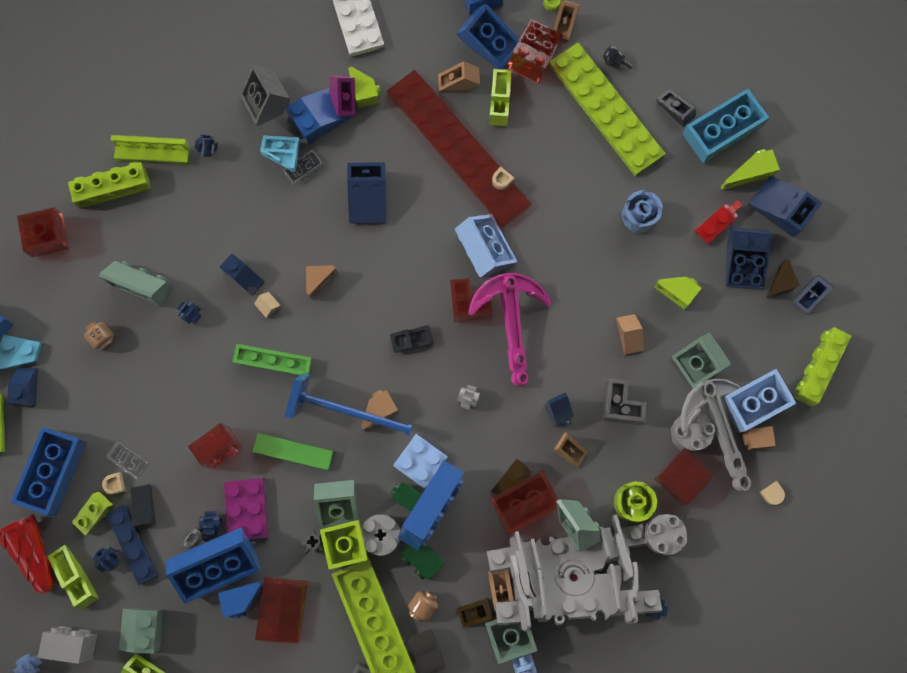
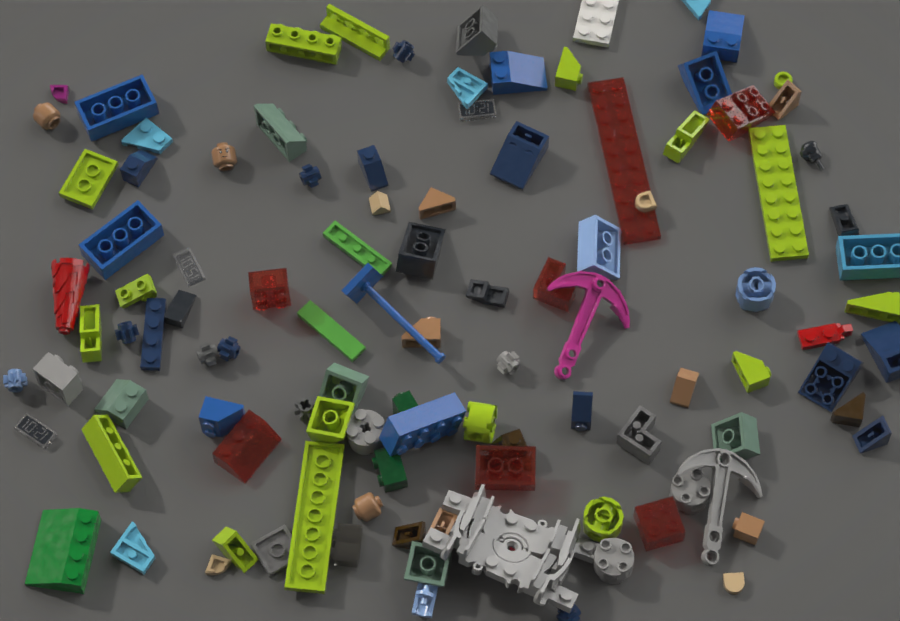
camera: 30 degrees right, 15 degrees down
(42, 232) = (226, 53): clear red brick -> none
(114, 483) = (166, 279): tan tile -> none
(212, 565) = (211, 377): blue brick -> none
(247, 507) = (263, 356): magenta plate -> none
(329, 330) = (420, 250): none -> black slope
(343, 94) = (546, 66): magenta slope -> none
(420, 461) = (432, 387): light blue plate -> none
(459, 78) = (658, 103): medium nougat slope -> none
(479, 470) = (480, 422): none -> lime brick
(570, 450) = (571, 449): medium nougat slope -> none
(578, 524) = (541, 505): sand green slope -> none
(758, 401) = (765, 494): light blue slope -> none
(822, 366) = (843, 499): lime brick -> none

